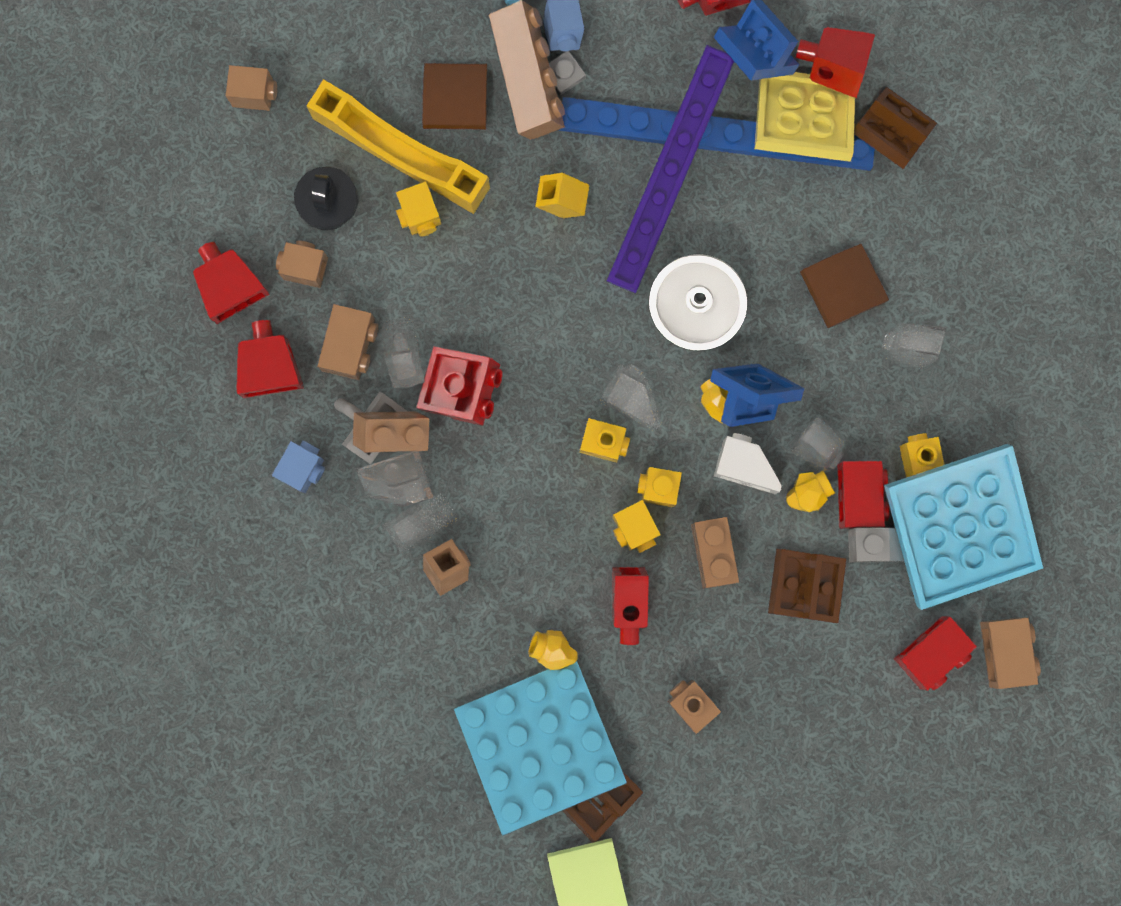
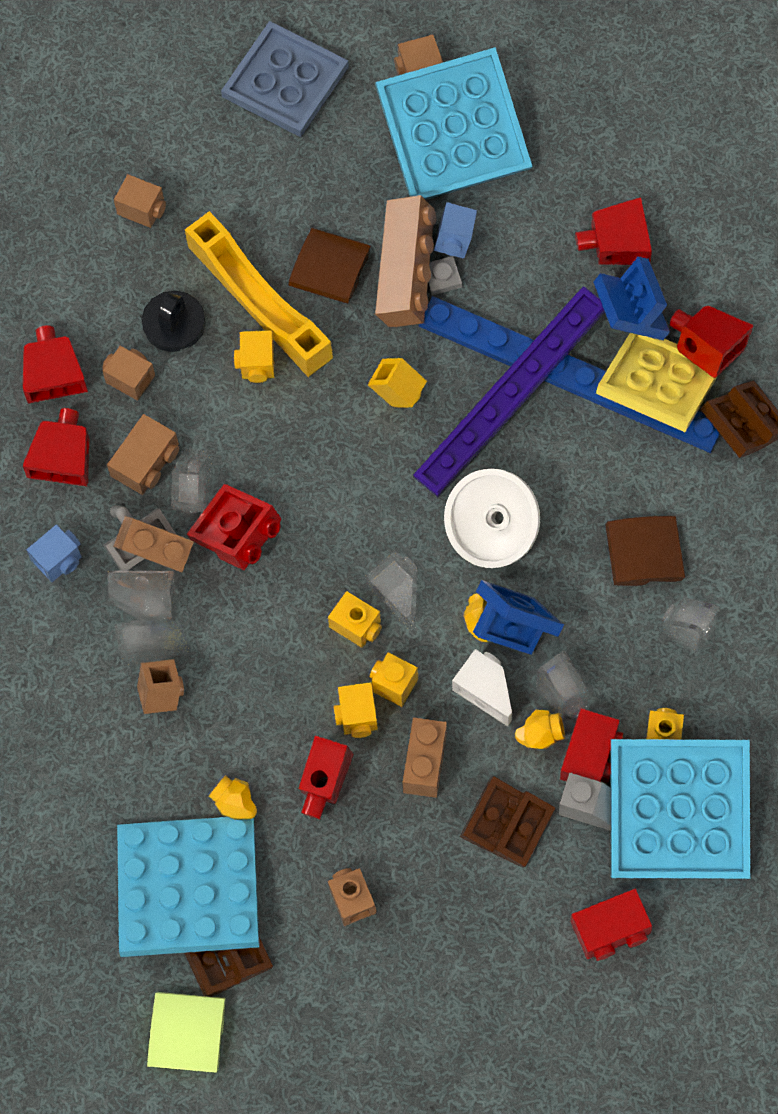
camera: 25 degrees right, 15 degrees down
(1010, 653) = (687, 948): medium nougat brick -> none

